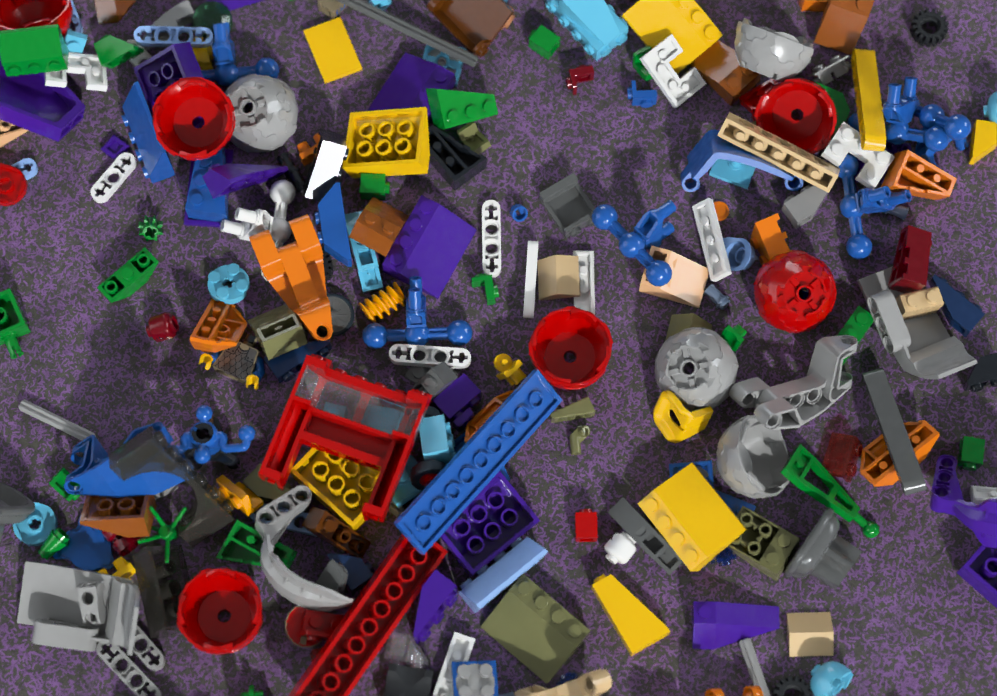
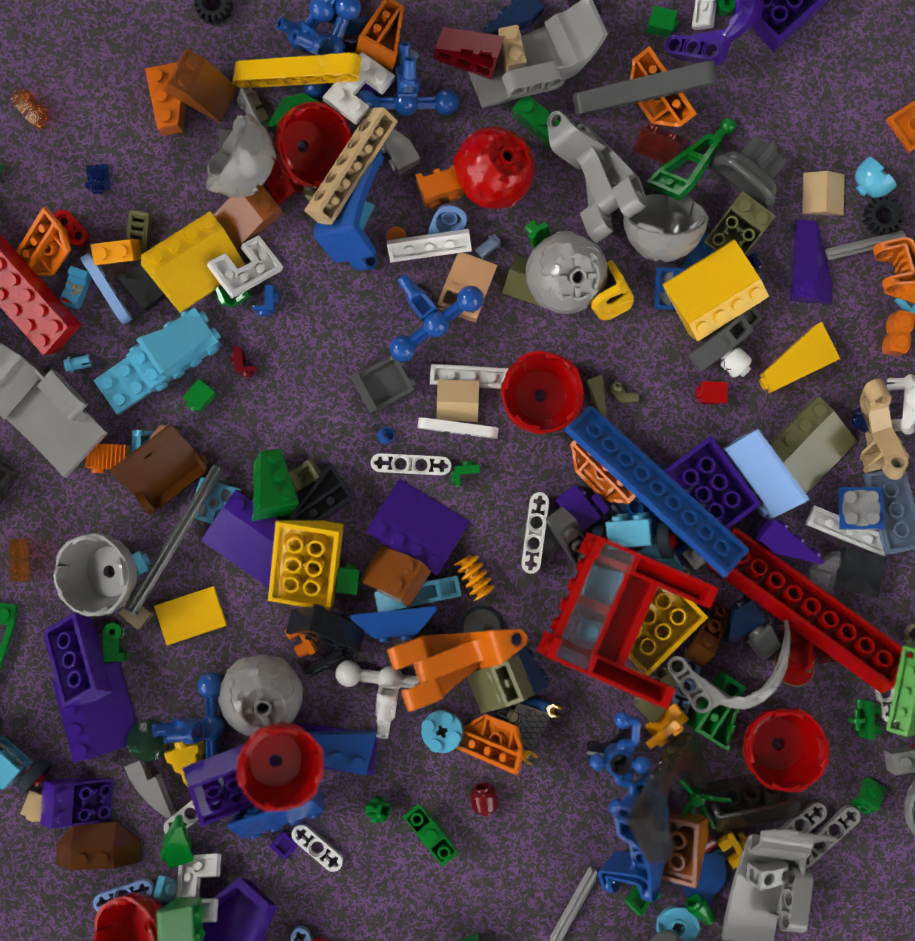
camera: 90 degrees left, 15 degrees up
(174, 33) = (171, 783): light blue beam -> none
(235, 177) = (338, 724): dark purple wedge -> none
(417, 331) = (507, 544): blue connector -> none
(508, 369) = (554, 455): yellow hips -> none

